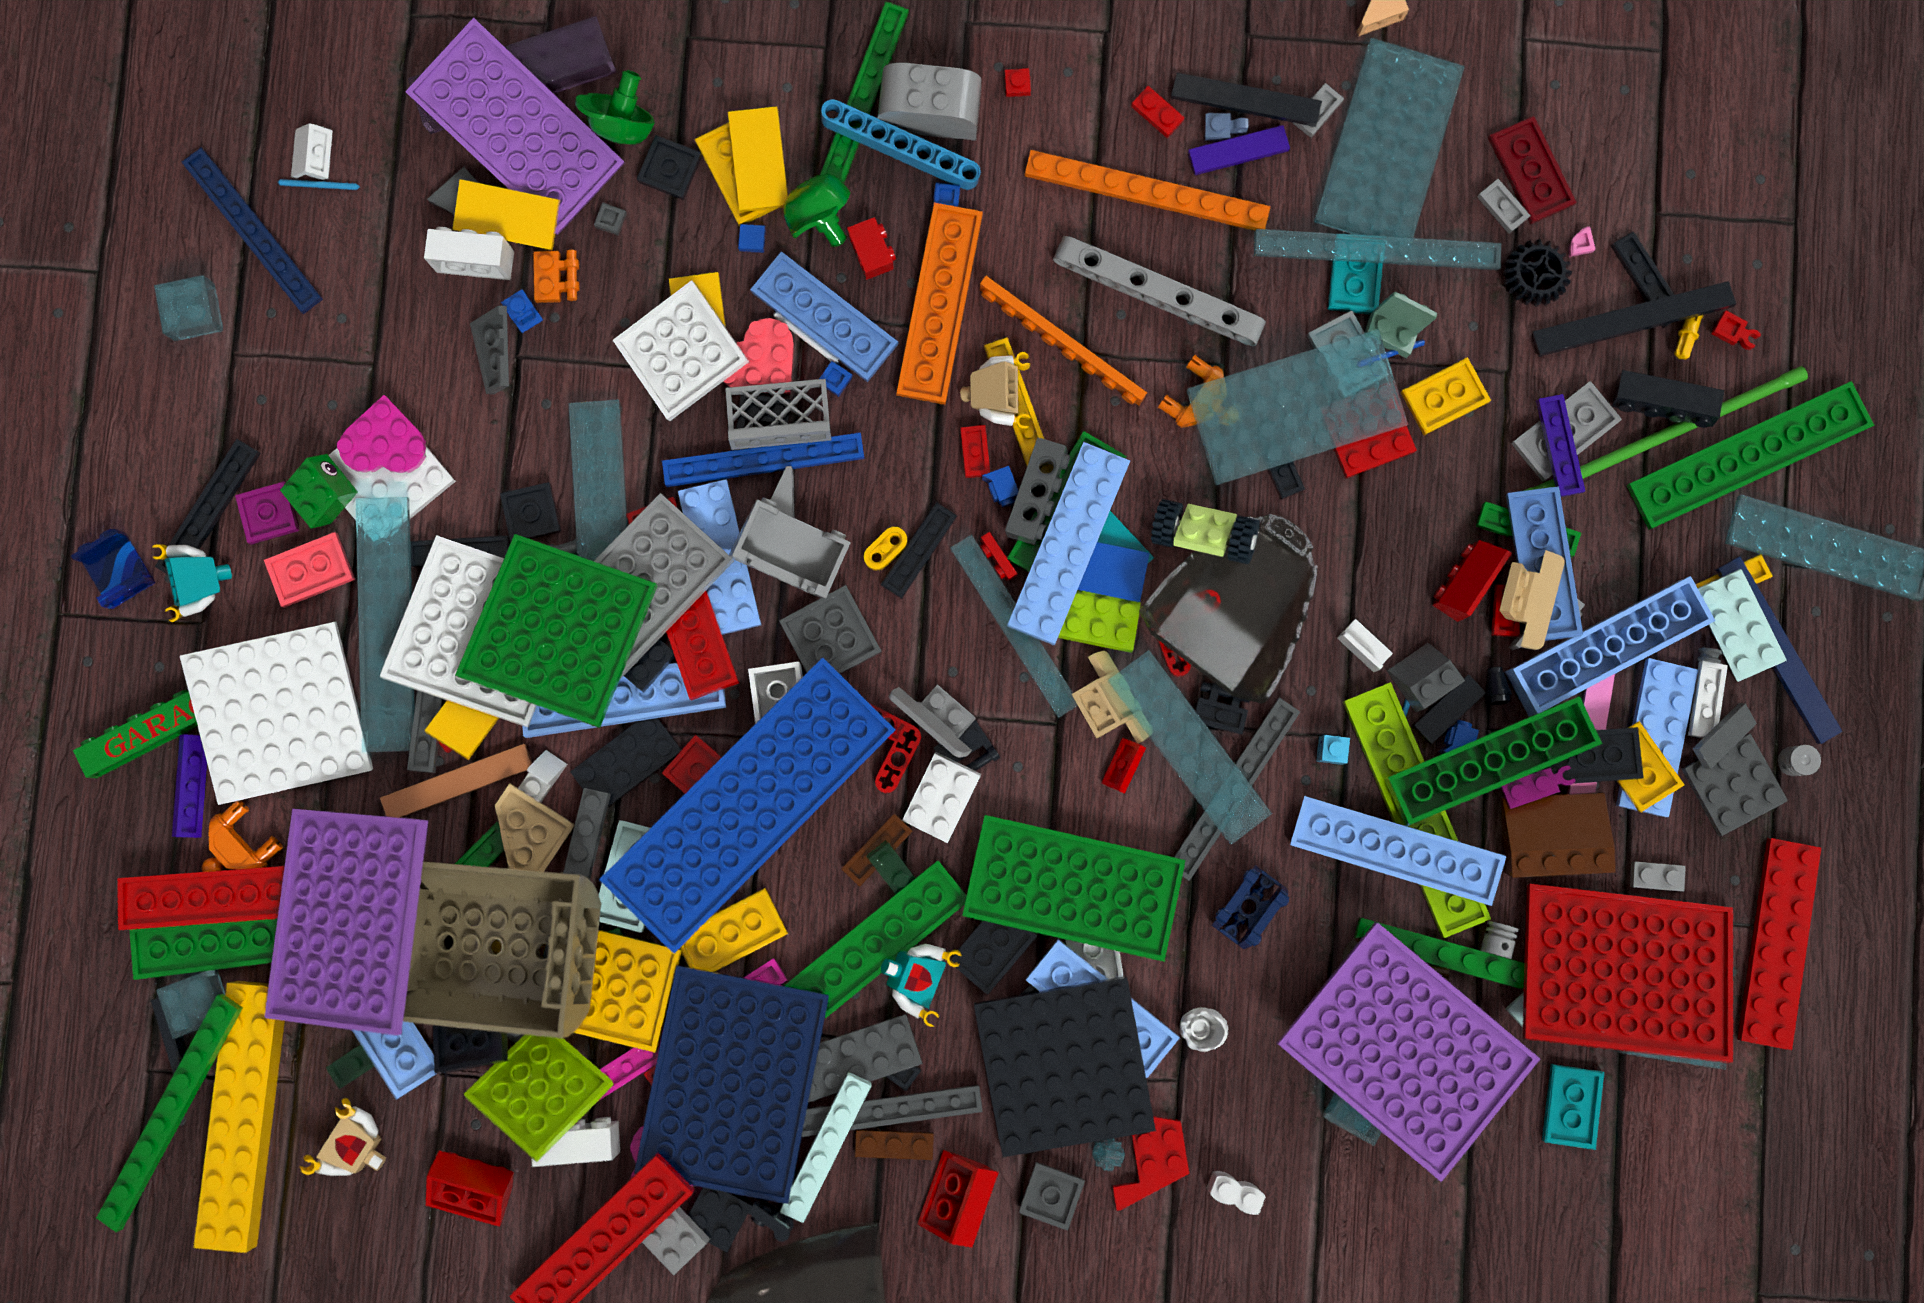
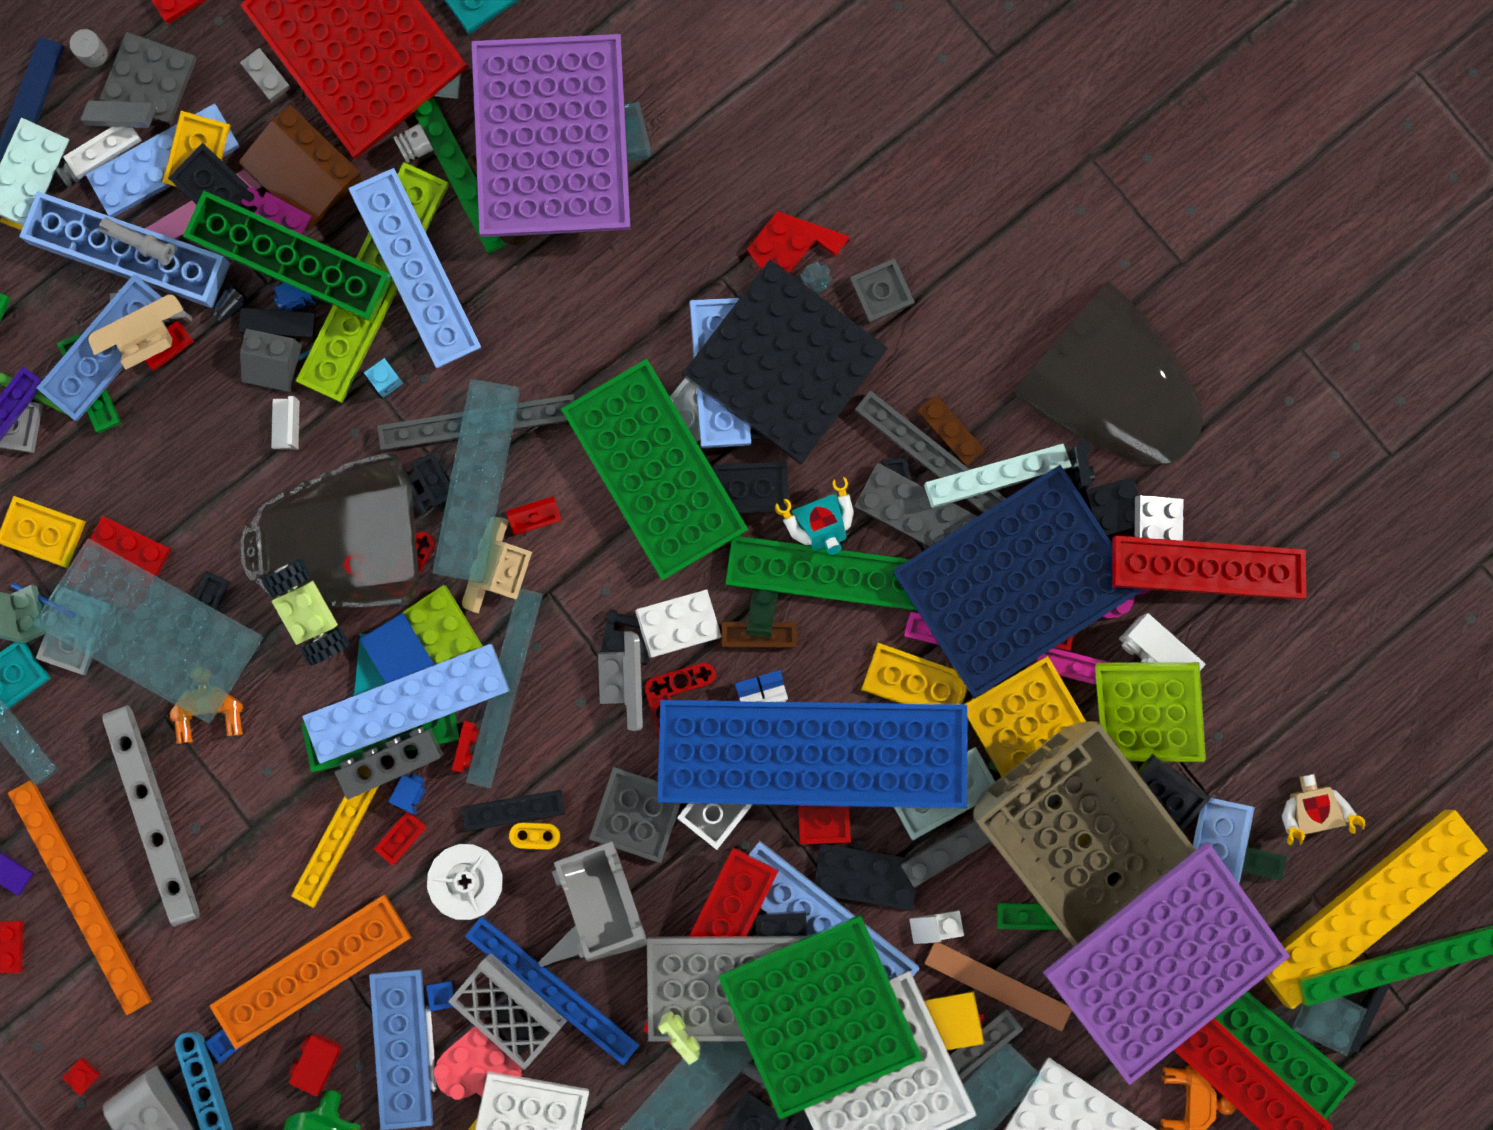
camera: 135 degrees left, 0 degrees up
(469, 1188) = (1263, 698): red slope -> none
(529, 830) = (981, 897): tan plate -> none
(634, 514) = (685, 1045): none -> yellowish green wing
(732, 593) = (627, 987): light blue plate -> none
(828, 822) = (771, 685): none -> hips
(894, 450) = (452, 897): none -> white piece
(957, 1199) = (945, 352): red slope -> none
(996, 390) = (339, 865): tan torso -> none
(1054, 336) = (257, 861): orange plate -> none
(1203, 1029) = (668, 290): white hair -> none
(1241, 1193) = (758, 165): white brick -> none
(1263, 911) = (551, 321): dark blue piece -> none
(1470, 579) = (165, 390): red slope -> none
(1598, 664) = (147, 245): none -> light grey pin

